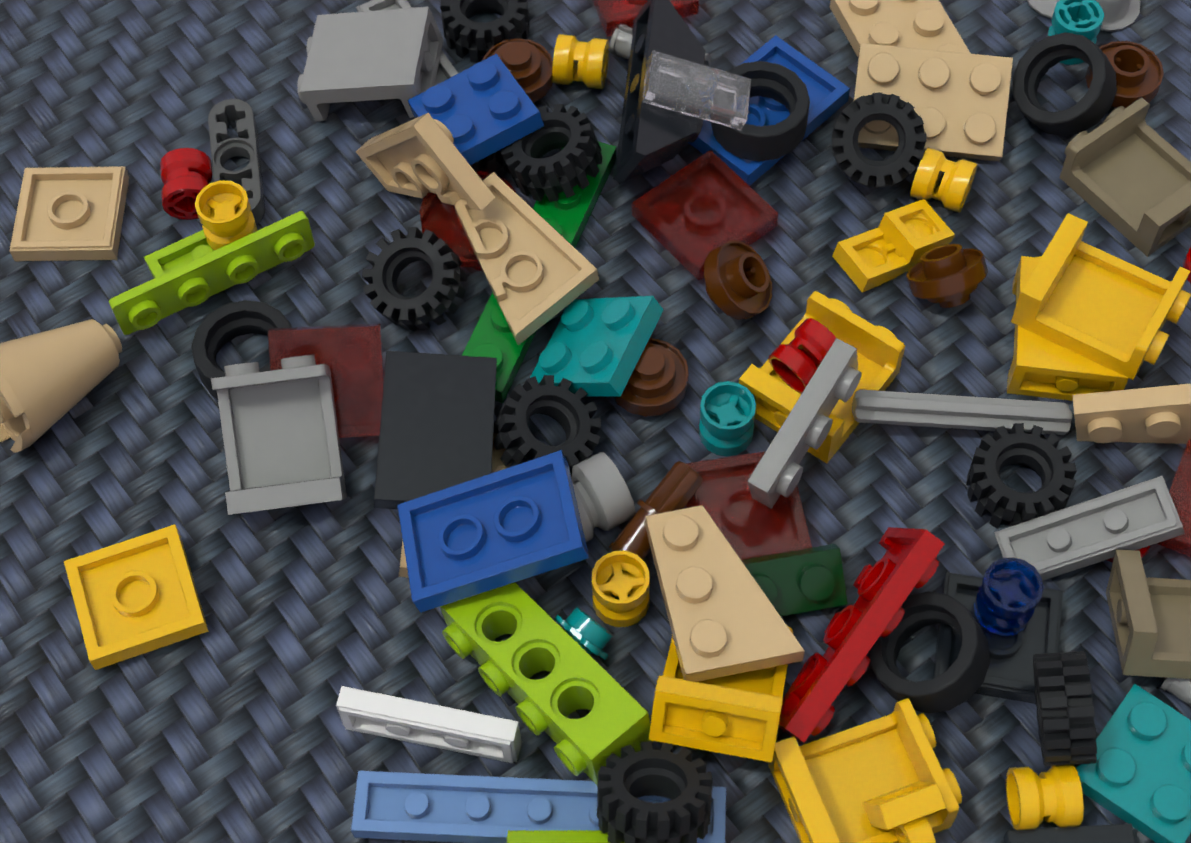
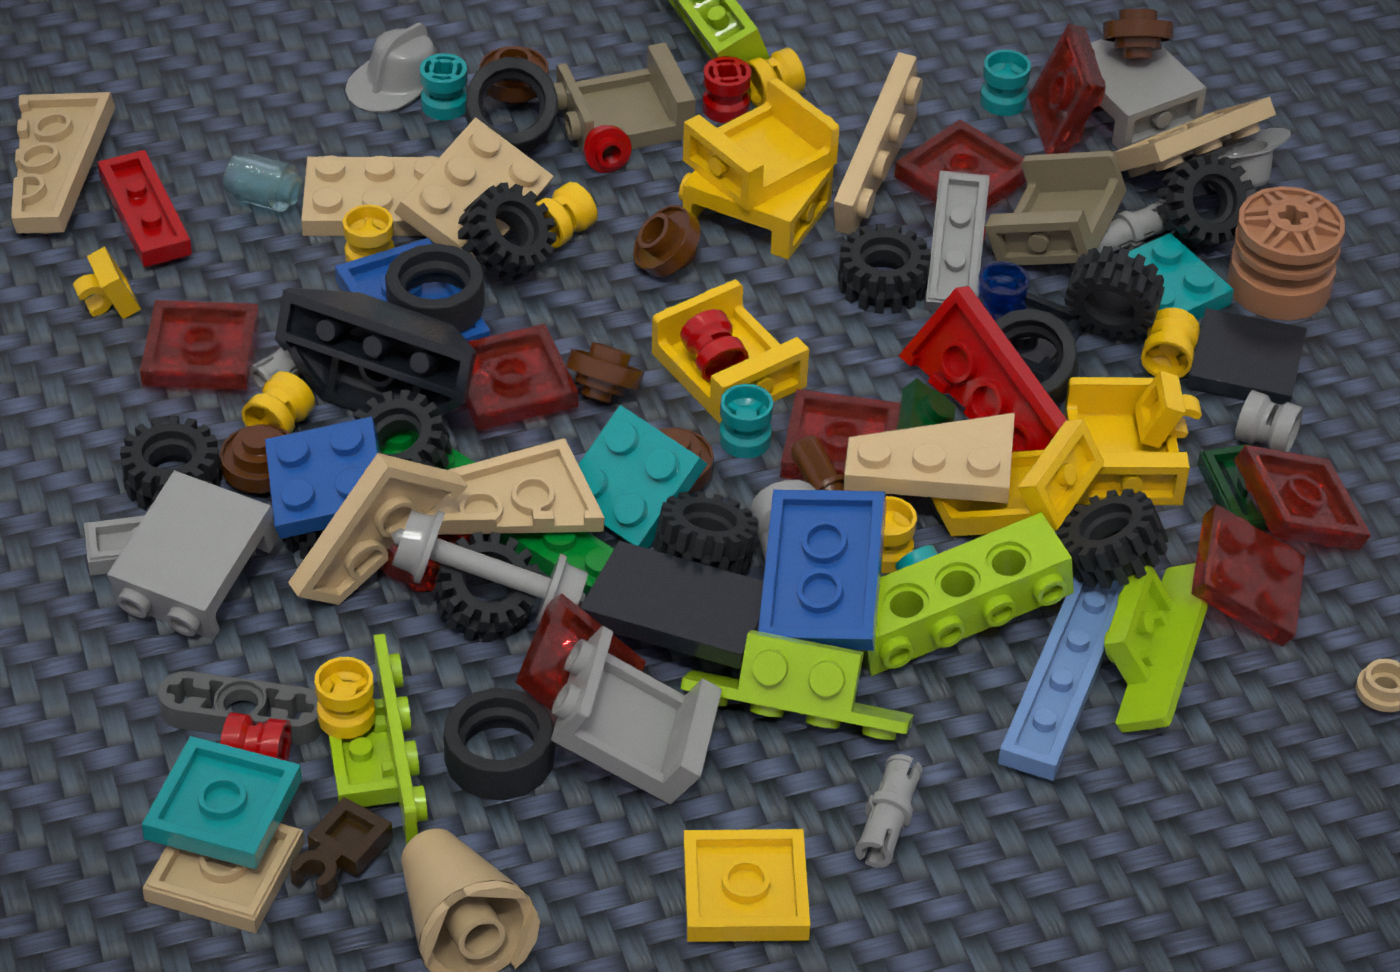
camera: 75 degrees left, 15 degrees down
(97, 280) = (341, 841): none -> dark brown plate
(103, 180) = (222, 802): none -> teal plate
(264, 693) = (888, 811): none -> light grey pin
(372, 579) = (803, 679): none -> lime bracket
(399, 202) = (420, 543): none -> light grey piece
(429, 724) = (970, 694): white tile -> none
(696, 90) = (418, 299): clear plate -> none
(805, 425) = (802, 349): light grey plate -> none
(829, 43) = (367, 231): none -> yellow wheel
(893, 246) = (608, 272): yellow slope -> none
(959, 411) = (806, 281): light grey axle -> none
(1065, 184) = (599, 140): none -> red plate

